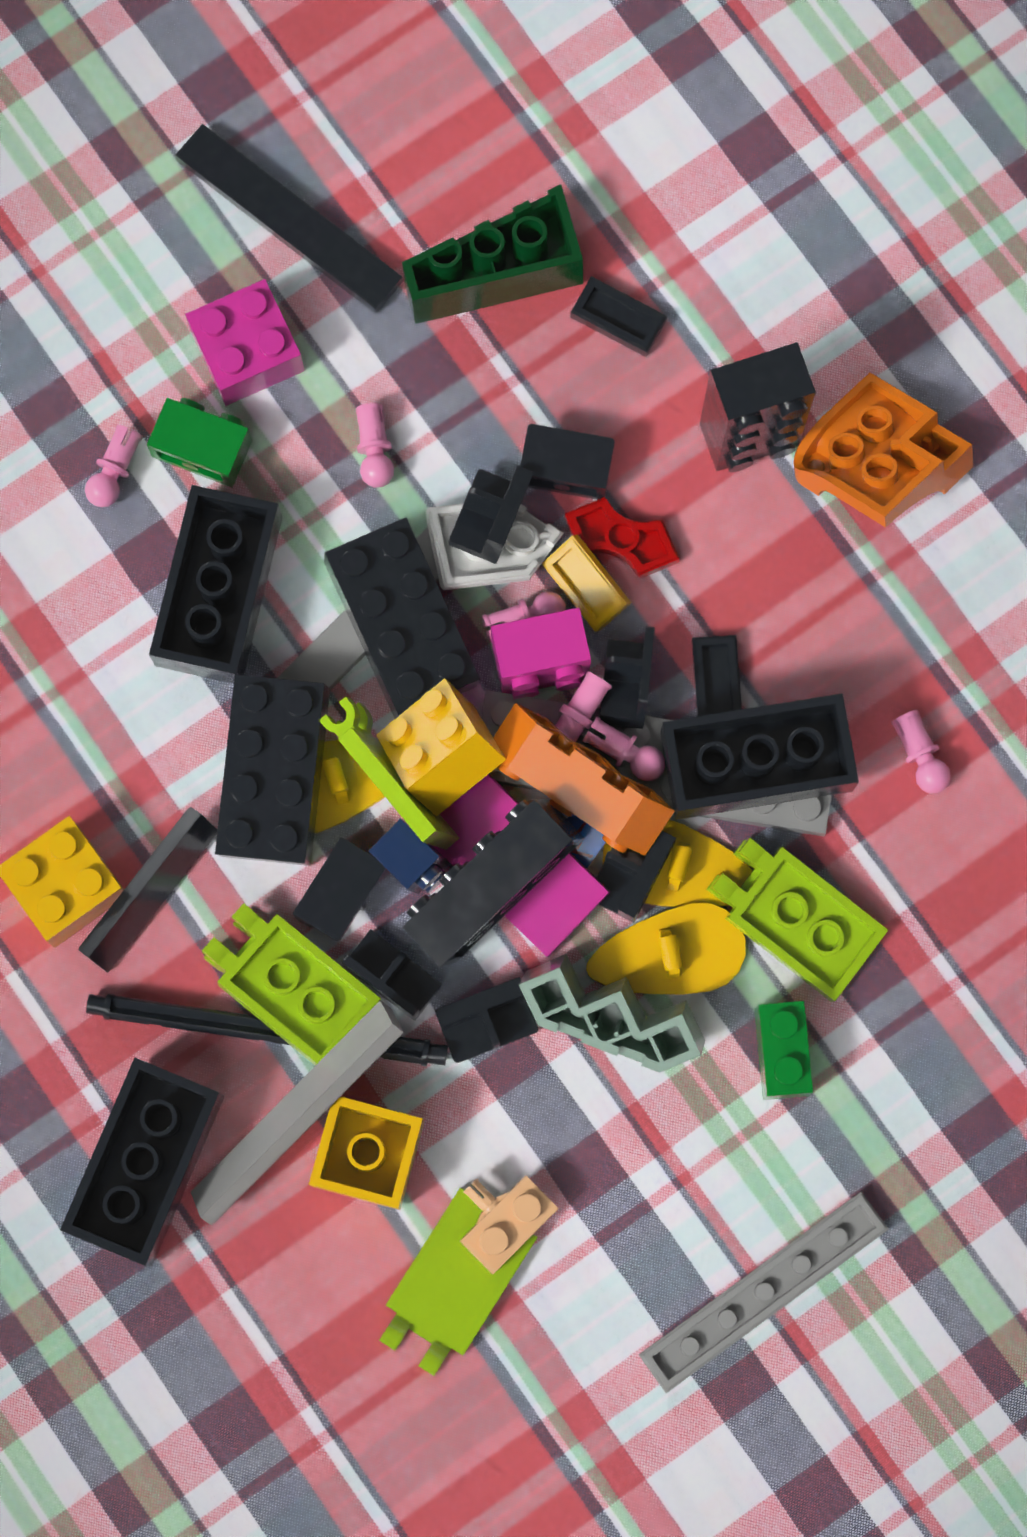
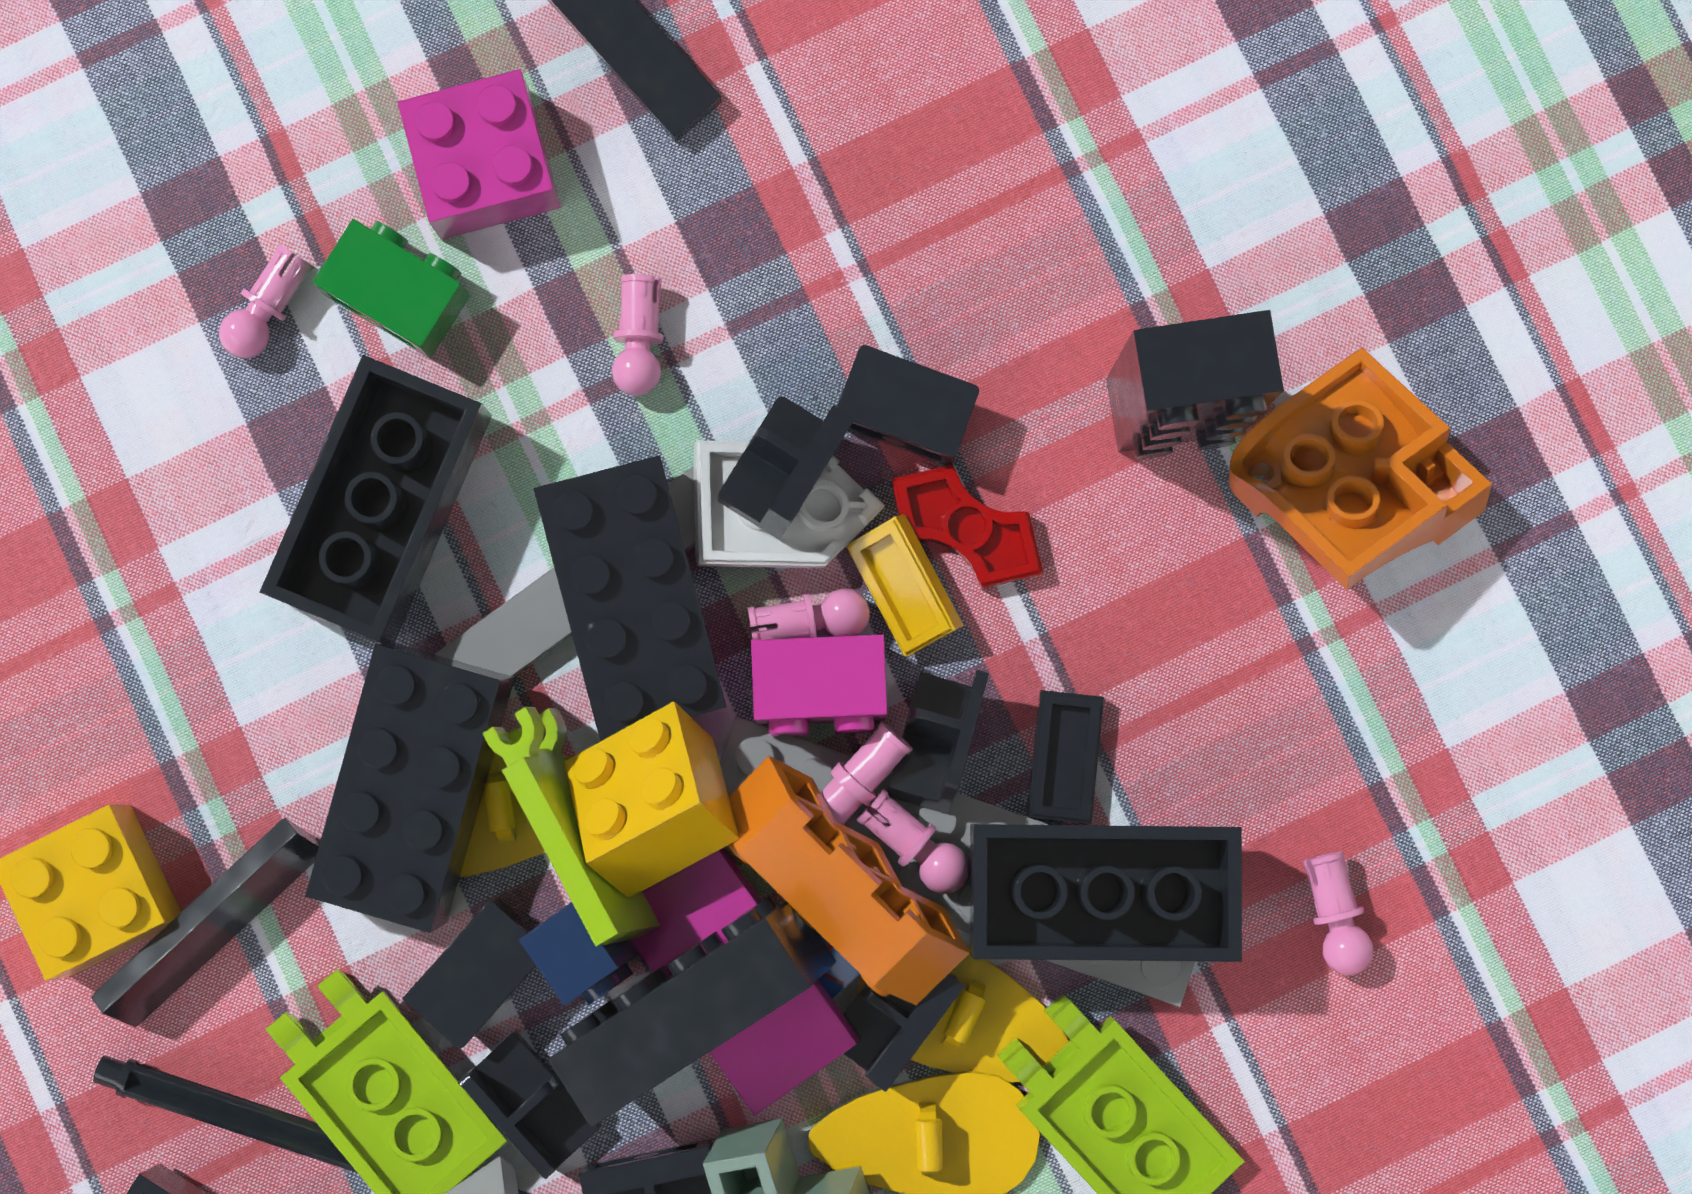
camera: 10 degrees right, 5 degrees up
(498, 262) = (860, 99): dark green wedge -> none
(618, 316) = (1018, 204): black tile -> none

